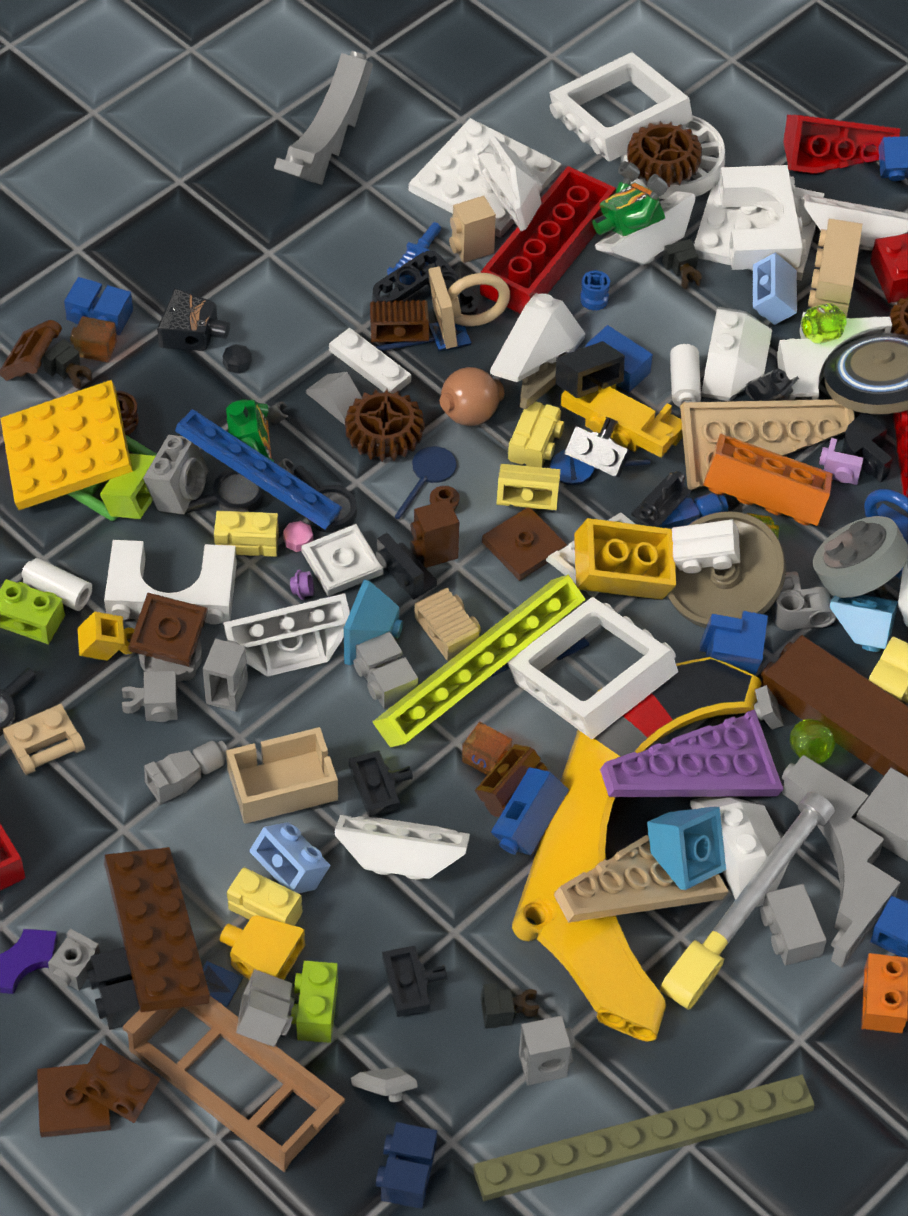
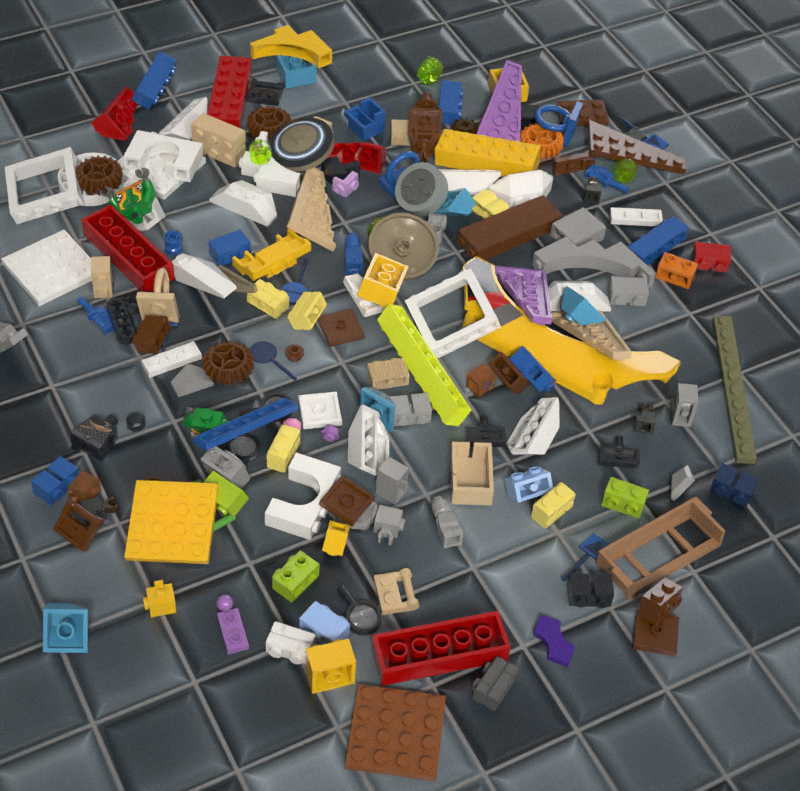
camera: 75 degrees left, 5 degrees down
(49, 578) = (278, 555): white brick -> none
(73, 972) = (565, 609): light grey brick -> none
(156, 930) = (561, 558): reddish brown plate -> none
(264, 946) = (585, 514): yellow torso -> none
(265, 1008) = (631, 518): light grey piece -> none
(404, 566) = (341, 380): black bracket -> none
(435, 533) = (327, 356): reddish brown brick -> none
(471, 396) = (228, 317): nougat brick -> none
(510, 180) = (81, 245): white wedge -> none
(588, 368) = (245, 253): black piece -> none
(599, 448) = (294, 273): plate -> none
(662, 500) = (349, 253): black hinge -> none
(683, 261) = (169, 201): pearl dark grey piece -> none
(685, 374) = (256, 224): white brick -> none
(702, 961) = (642, 333): piece -> none
(706, 546) = (393, 240): white brick -> none
(736, 640) = (455, 255): blue plate -> none
(768, 480) = (349, 211): orange slope -> none
(768, 708) = (495, 259): light grey plate -> none
(771, 386) = (290, 190): black hinge -> none
(774, 288) = (213, 168): light blue brick -> none
(812, 740) = (523, 248): clear neon green head -> none

